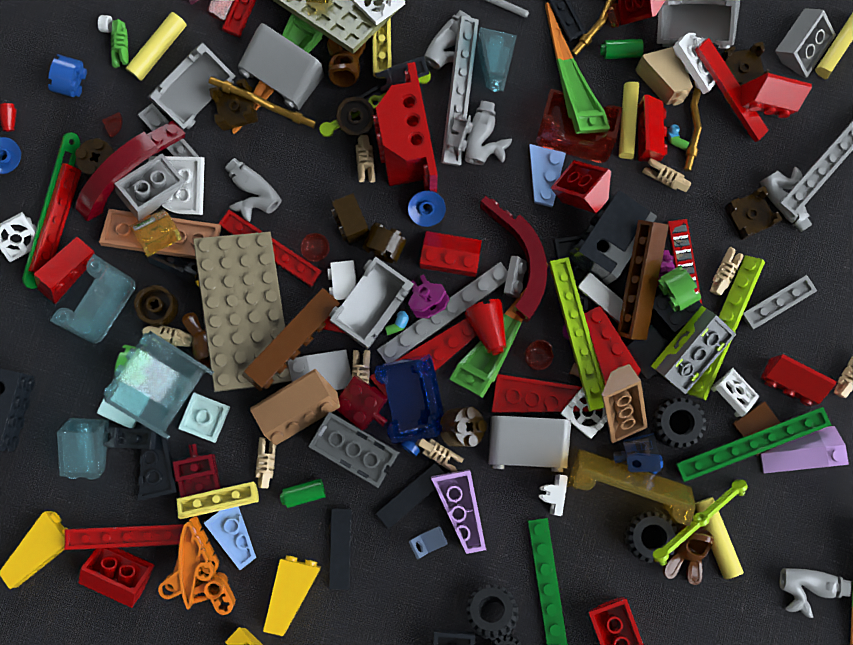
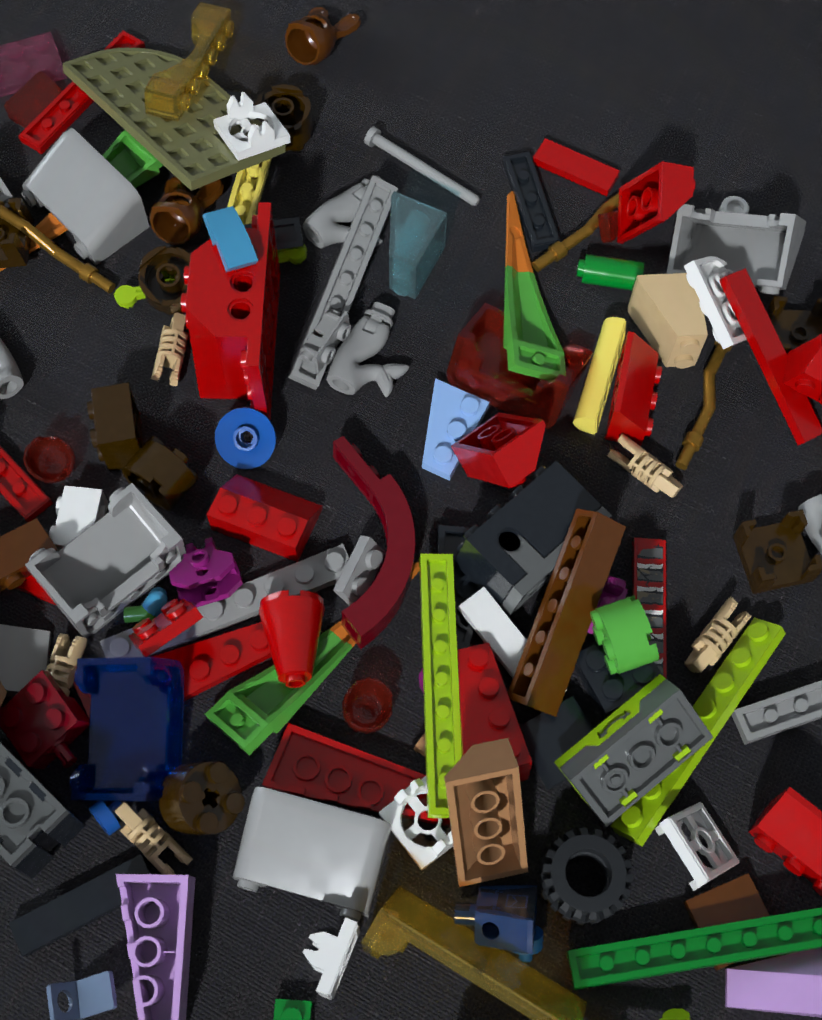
camera: 10 degrees right, 15 degrees down
(400, 94) = (230, 238): none -> dark azure slope
(417, 336) = (174, 619): none -> red plate
(674, 138) = (669, 415): arm -> none

